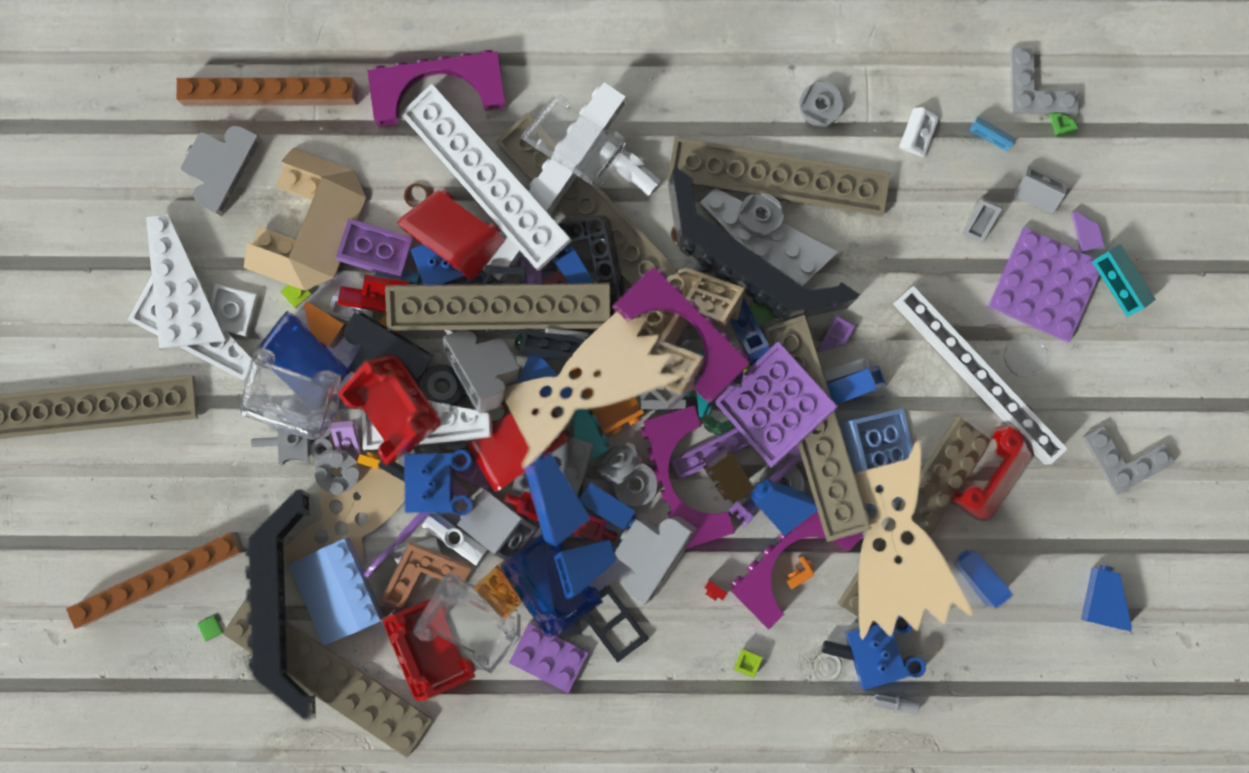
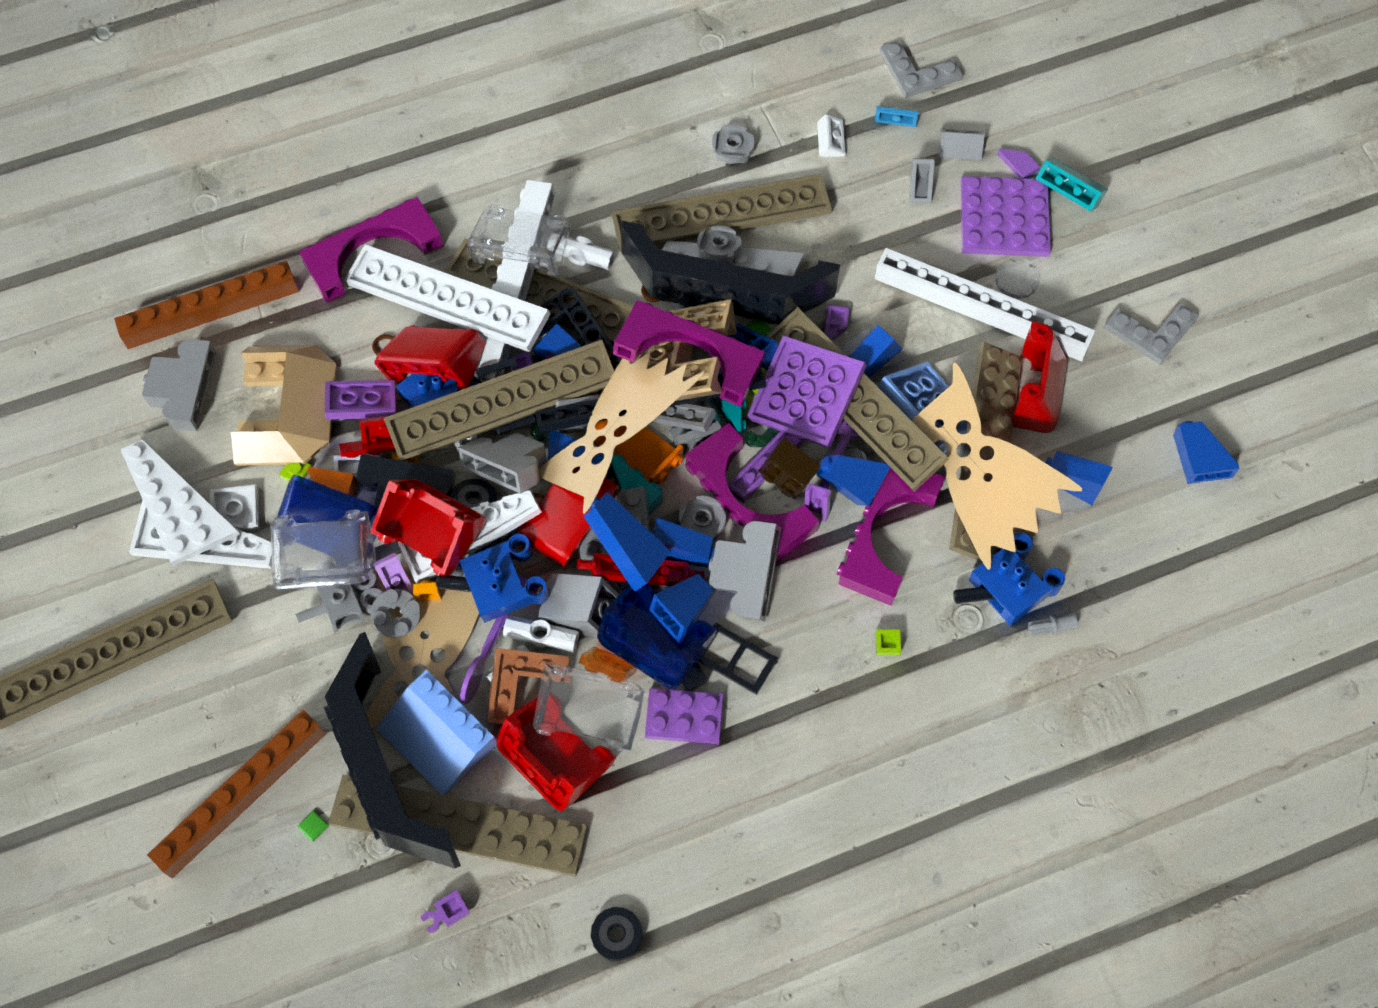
camera: 20 degrees left, 20 degrees down
(296, 746) = (449, 910): none -> medium lavender plate
(473, 474) = (534, 567): medium lavender tile -> none
(620, 462) = (678, 502): light grey plate -> none
(714, 591) = (824, 585): red plate -> none
(797, 577) = (901, 539): orange bracket -> none
(1062, 123) = (953, 89): bright green tile -> none

